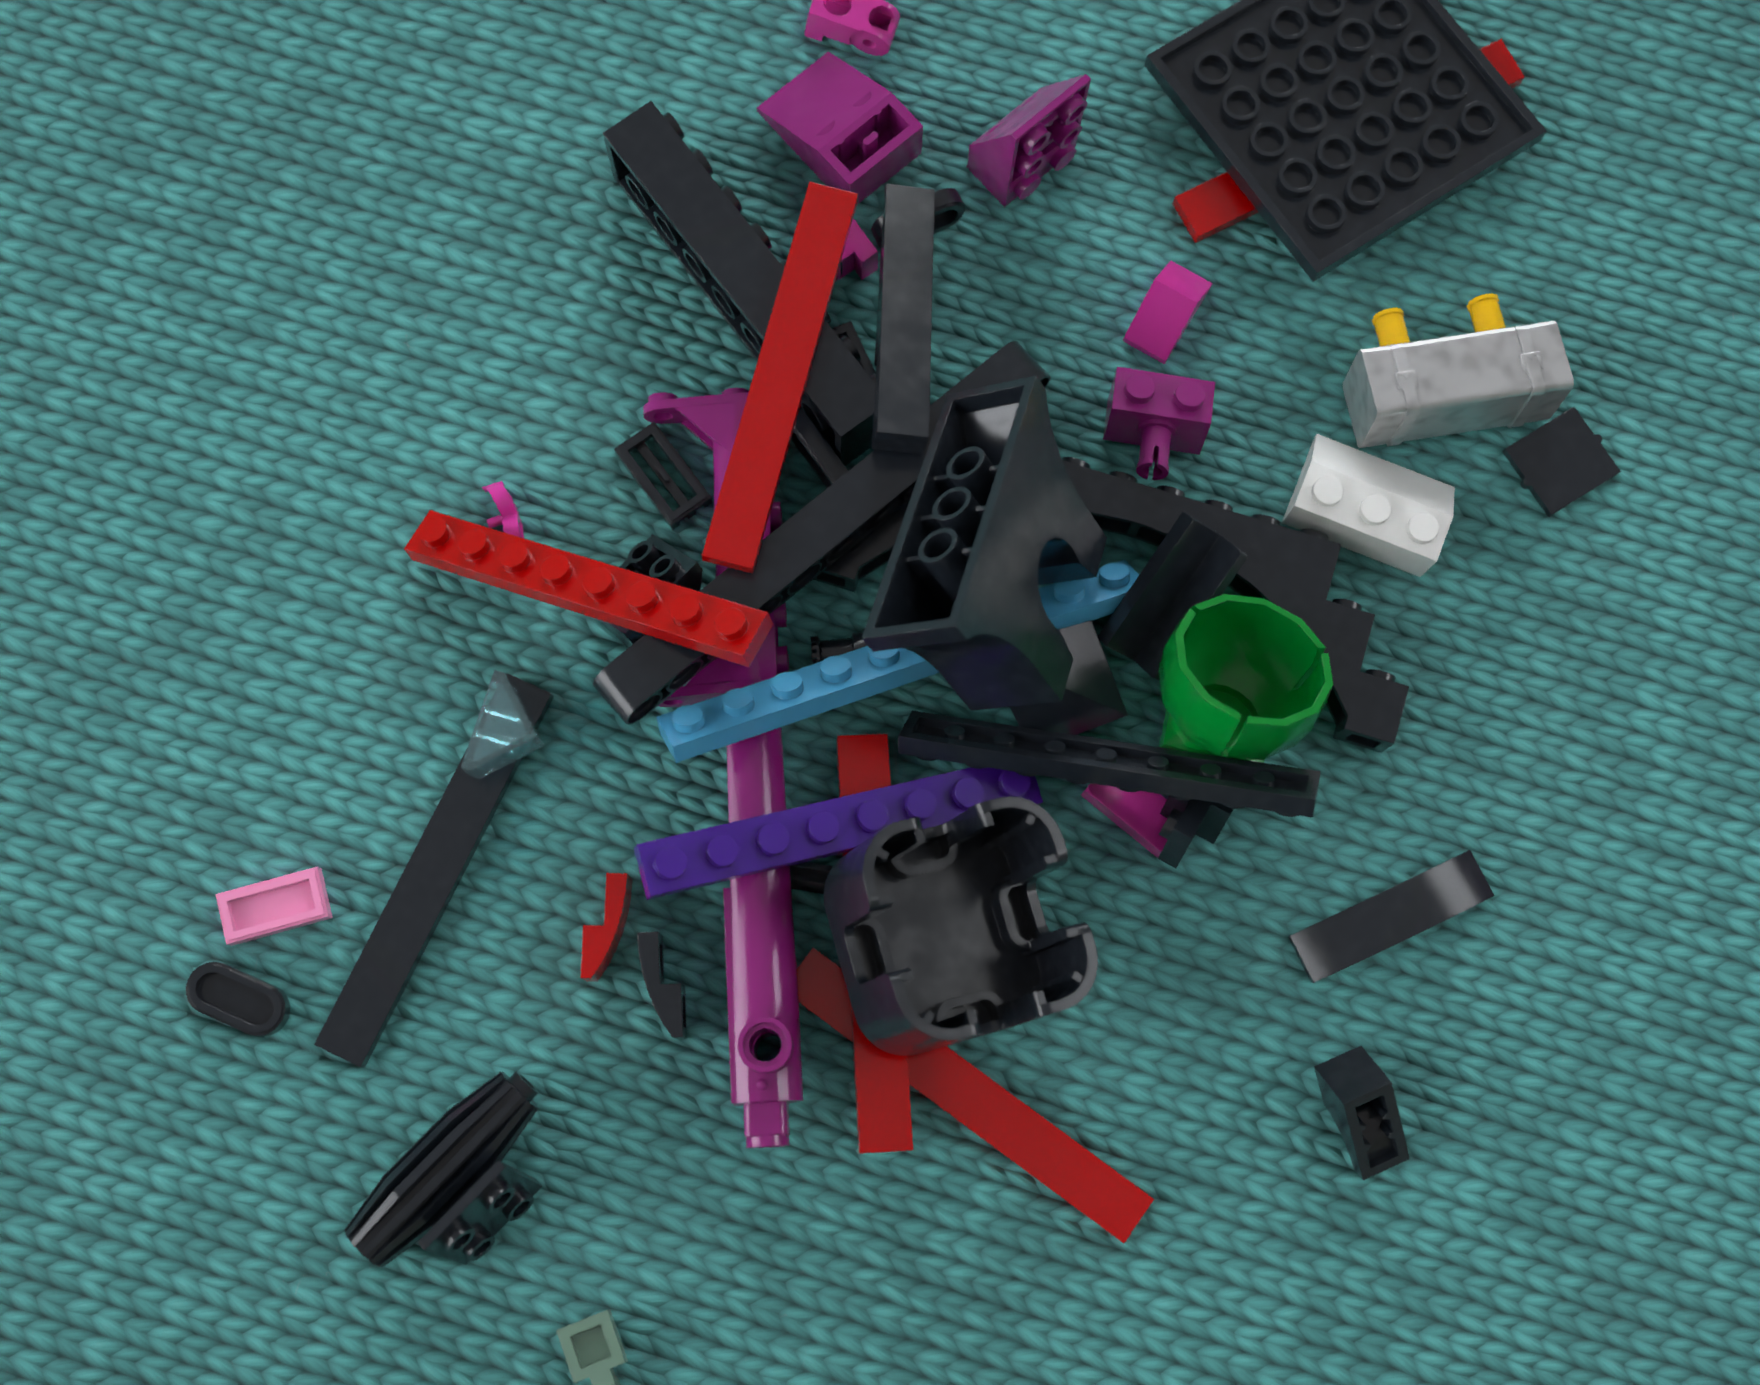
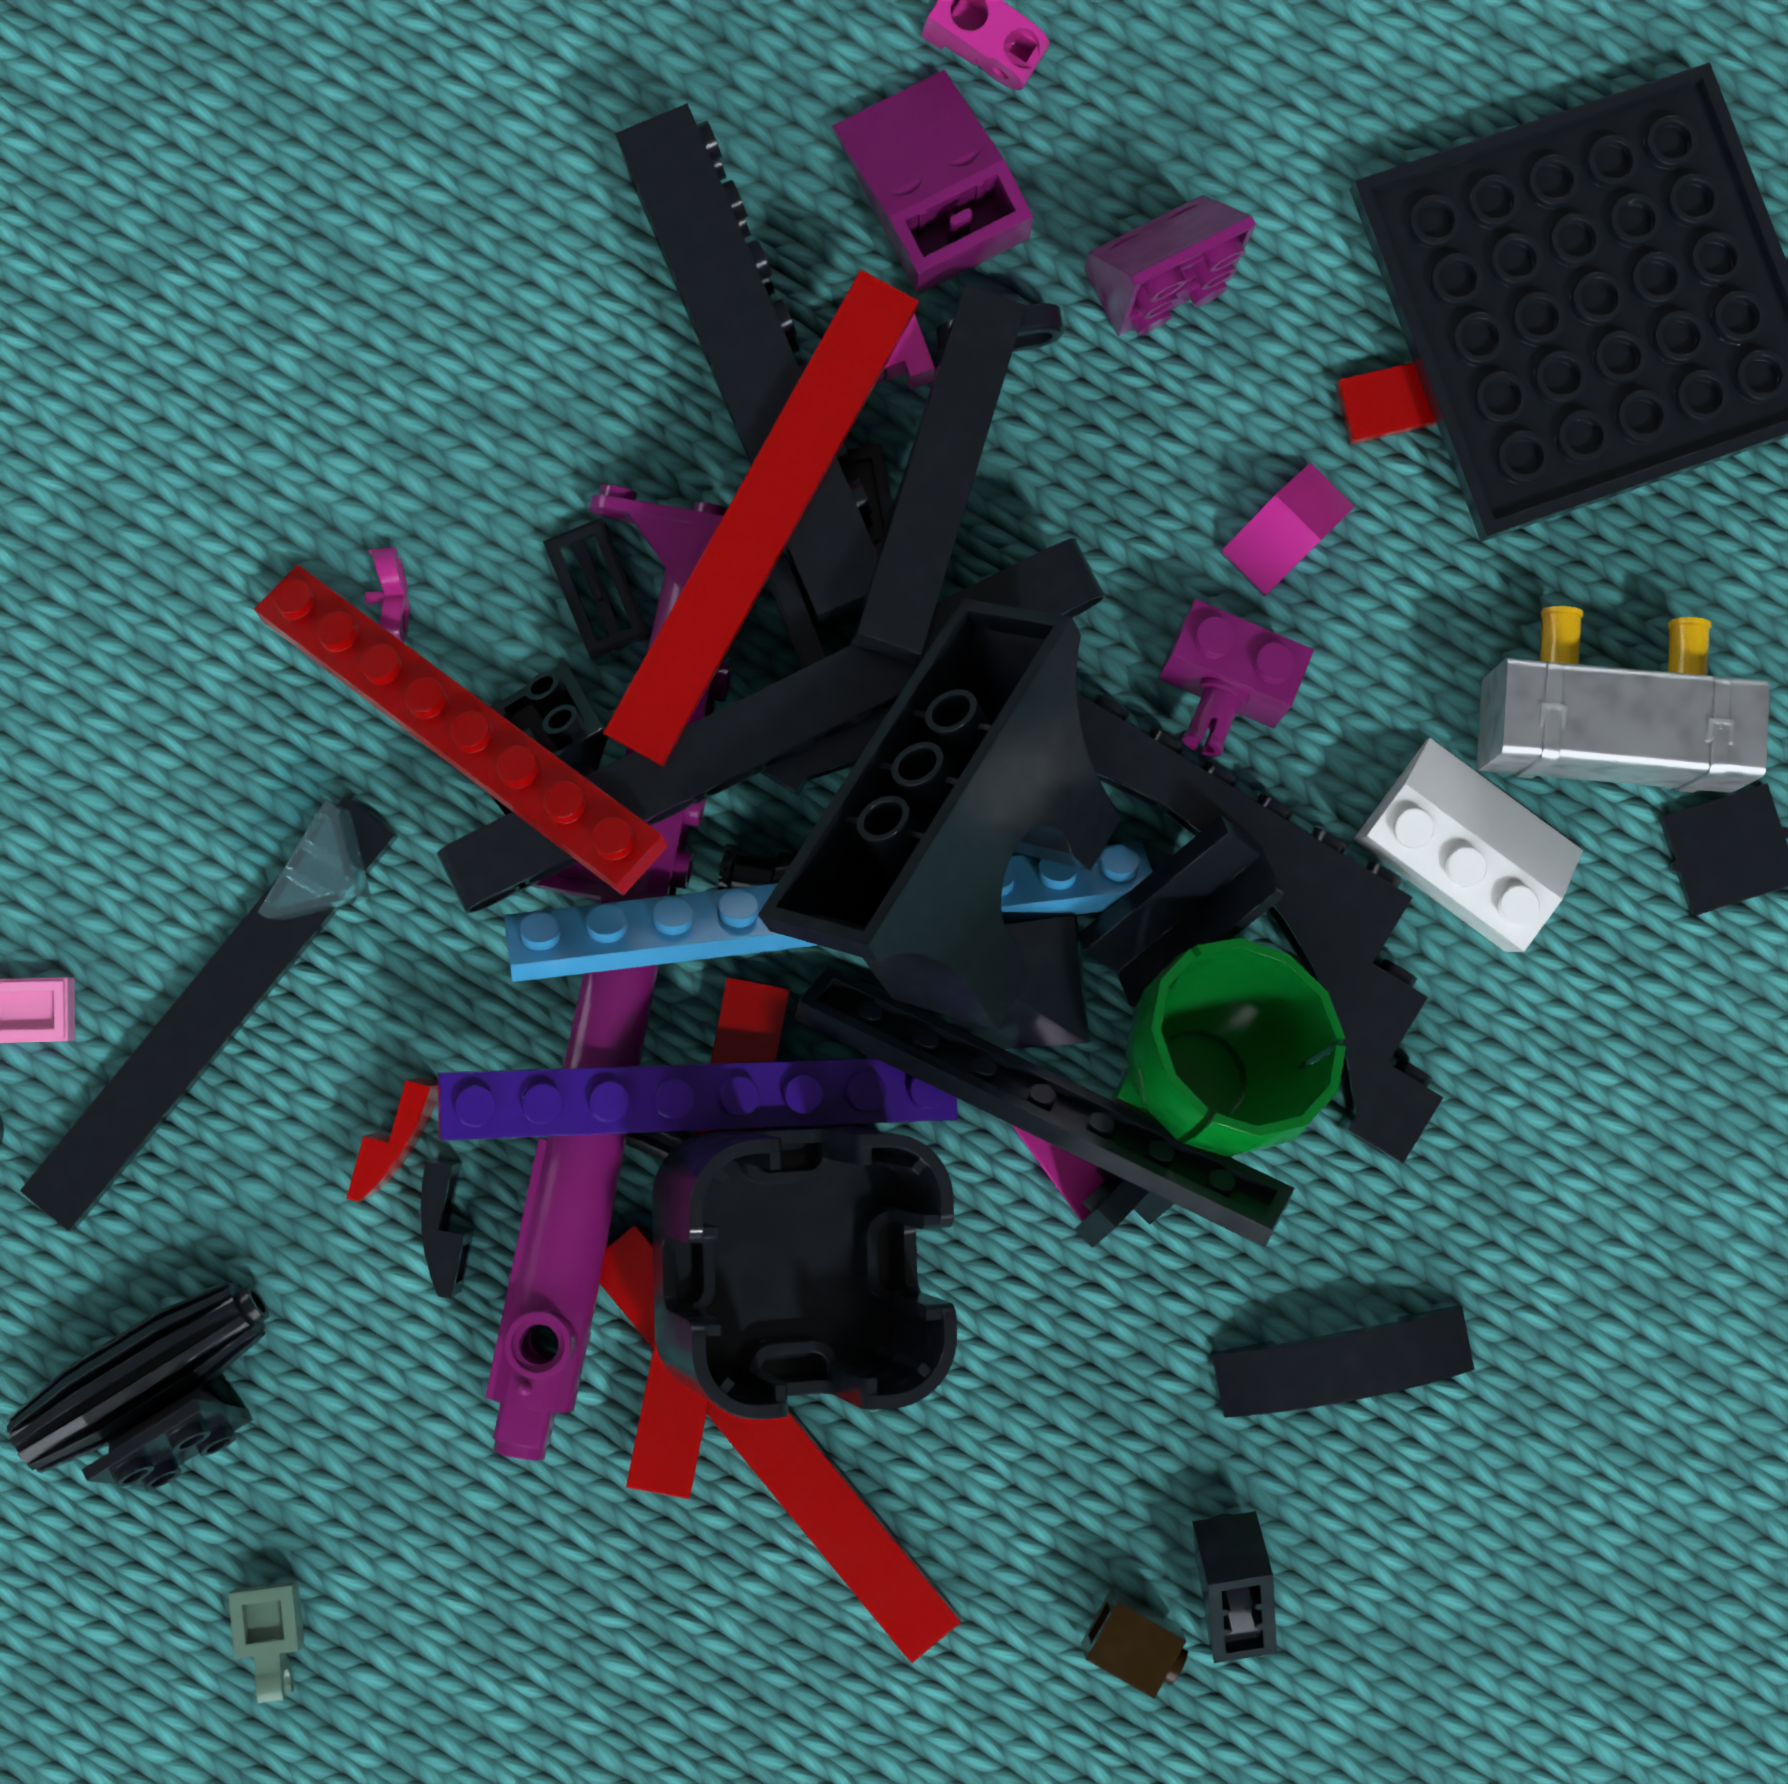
camera: 20 degrees right, 10 degrees up
(1298, 1176) = (1135, 1643): none -> dark brown brick

